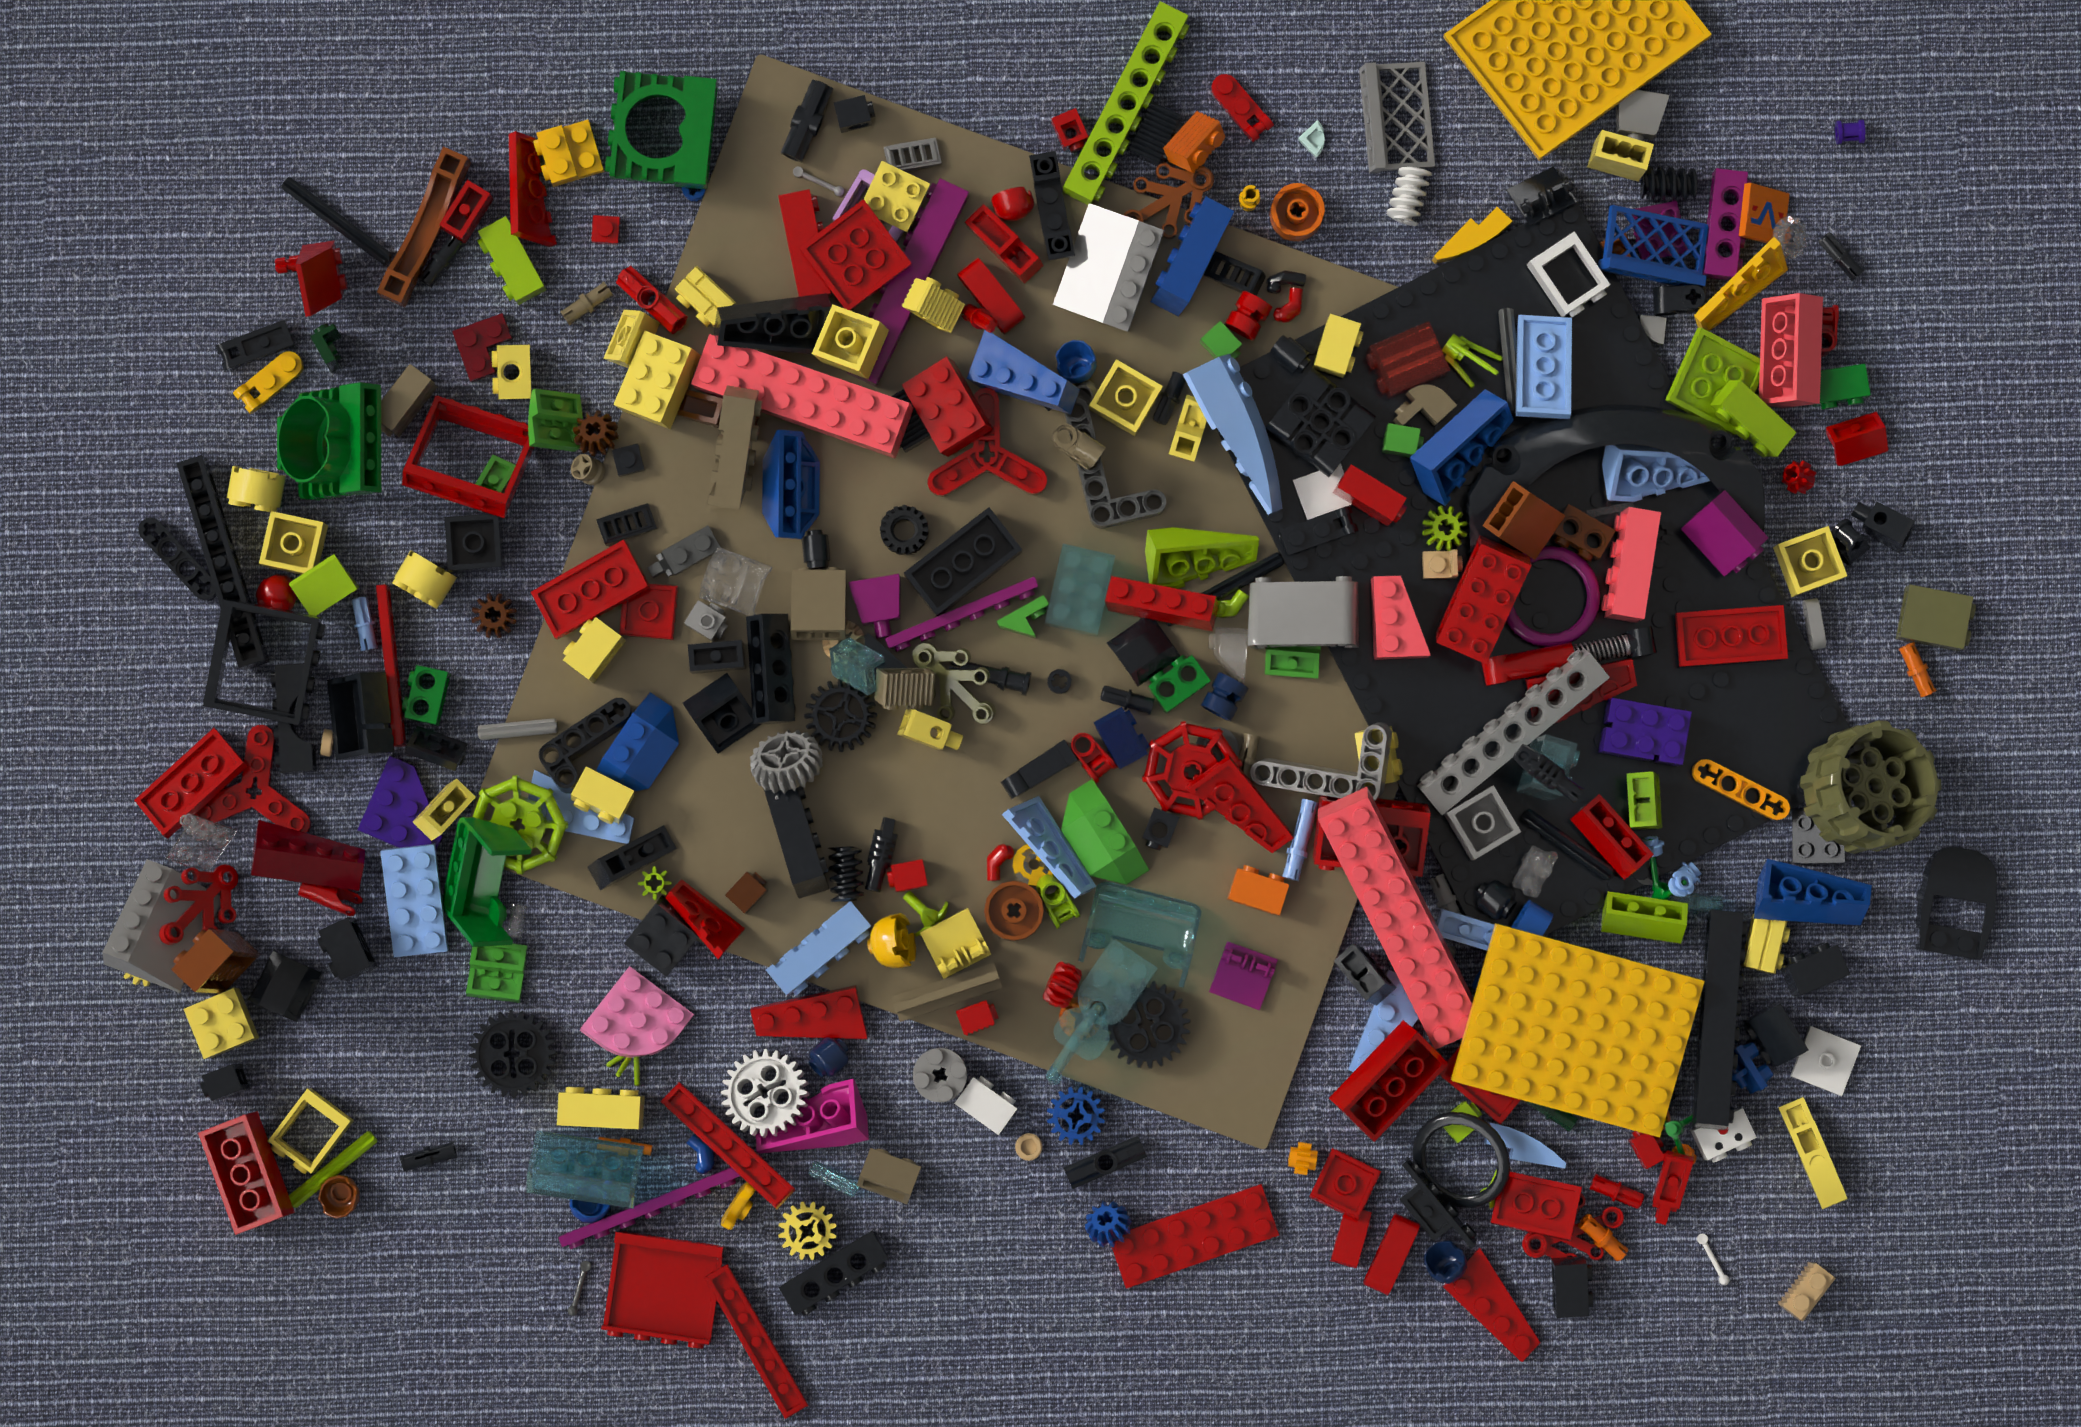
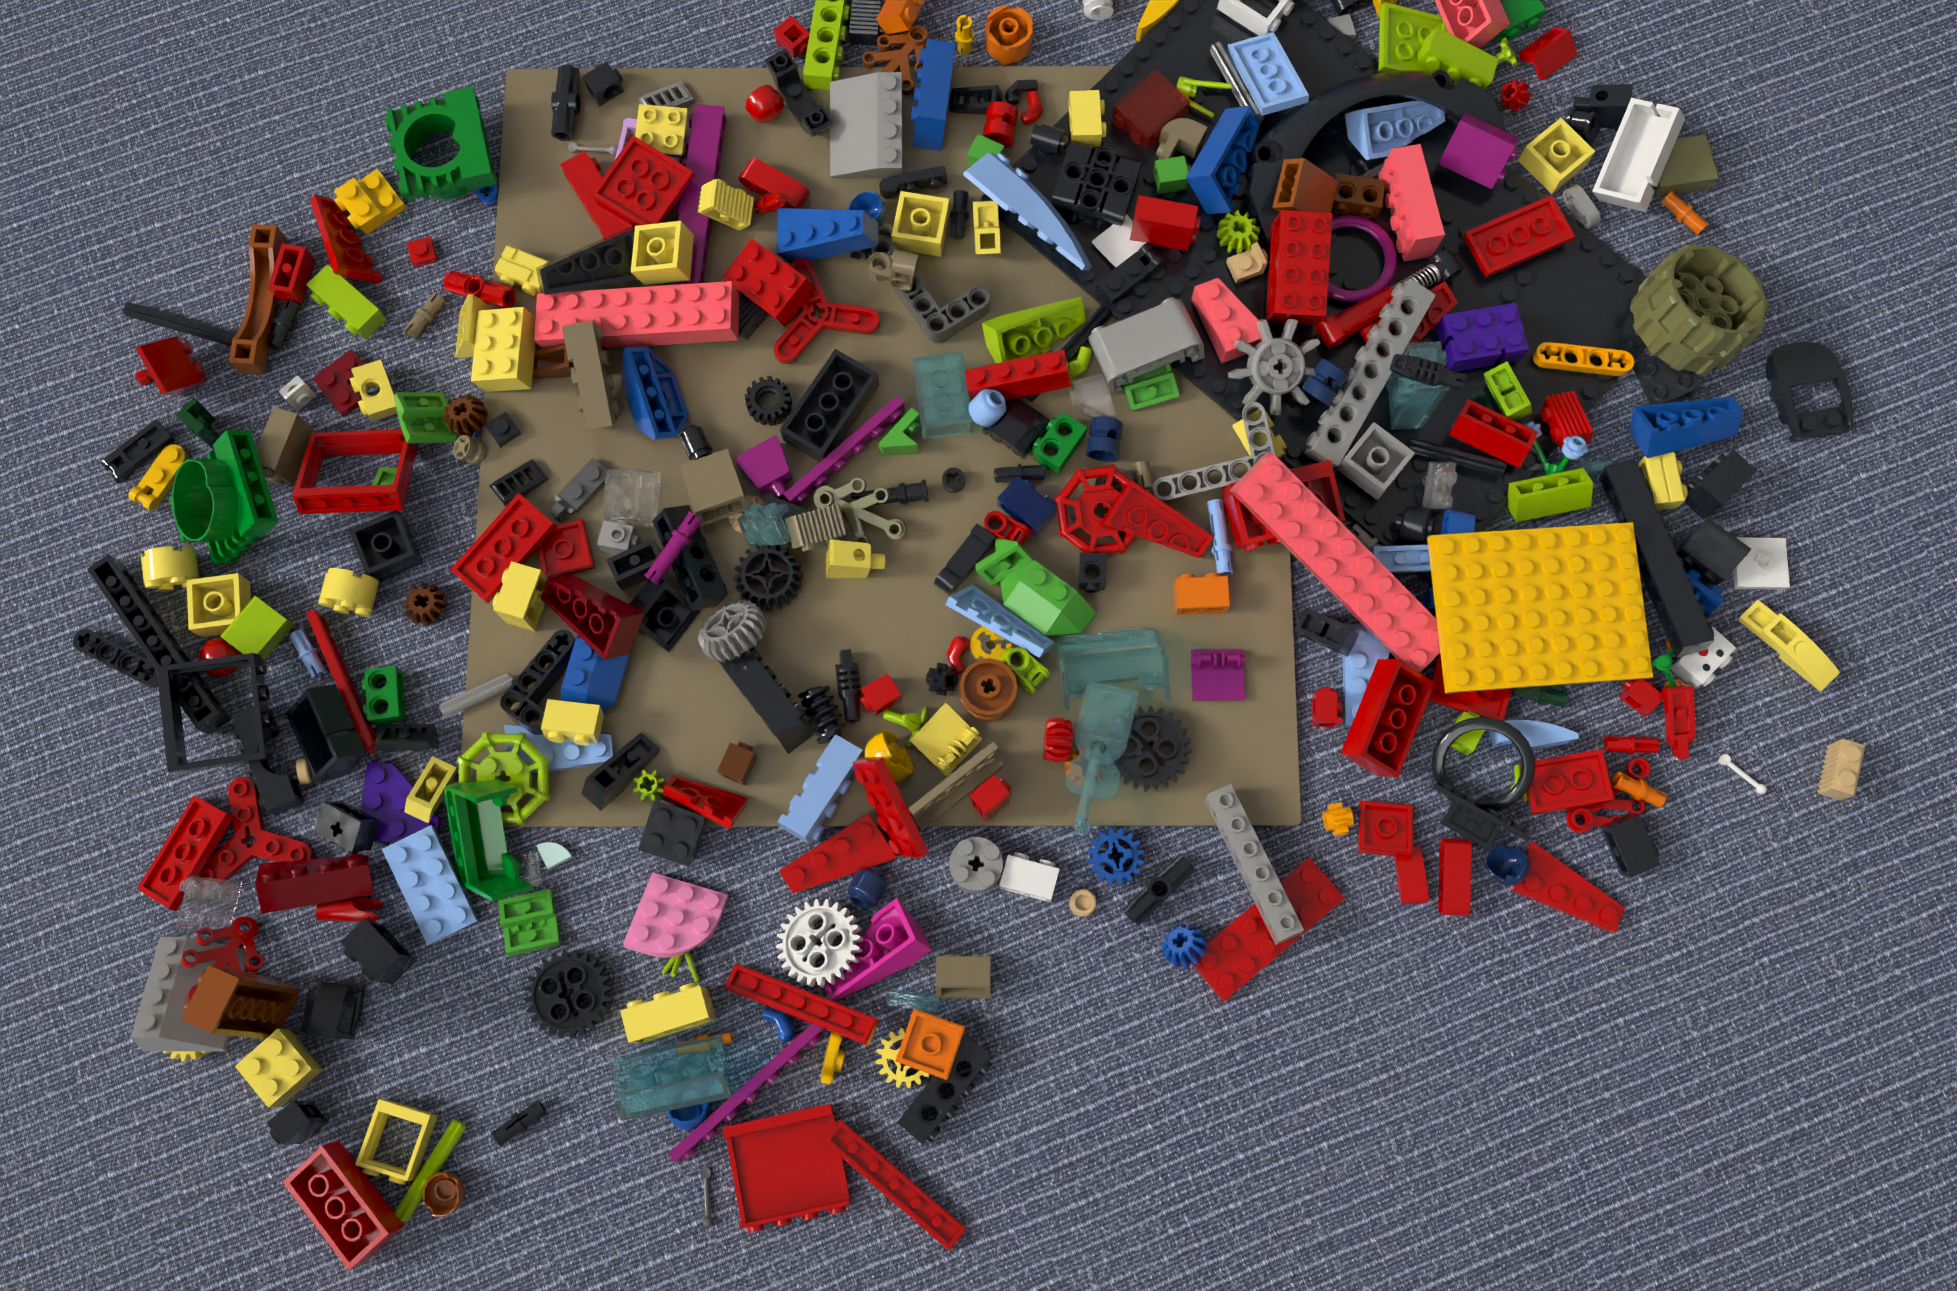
camera: 15 degrees left, 10 degrees down
(353, 815) = (346, 826): none -> black brick
(437, 349) = (299, 395): none -> white bracket
(540, 912) = (553, 854): none -> light aqua tile
(657, 696) = (593, 614): none -> dark red wedge
(757, 660) = (673, 548): none -> magenta pin
(835, 1228) = (930, 1044): none -> orange tile
(877, 992) = (890, 807): none -> red plate
(973, 882) = (941, 679): none -> black gear
(1004, 243) = (771, 141): red slope -> none
(1078, 788) = (1006, 560): none -> bright green slope
(1118, 624) = (987, 407): none -> light blue head
(1135, 345) = (913, 181): none -> black hinge
(1202, 1173) = (1253, 864): none -> light grey brick
(1336, 1046) = (1326, 708): none -> red brick
(1417, 677) = (1269, 353): none -> light grey gear
(1464, 725) = (1317, 388): none -> dark blue wheel
(1692, 848) = (1566, 418): none -> red brick
(1812, 425) = (1506, 53): none -> lime plant
(1888, 597) = (1638, 154): none -> white piece

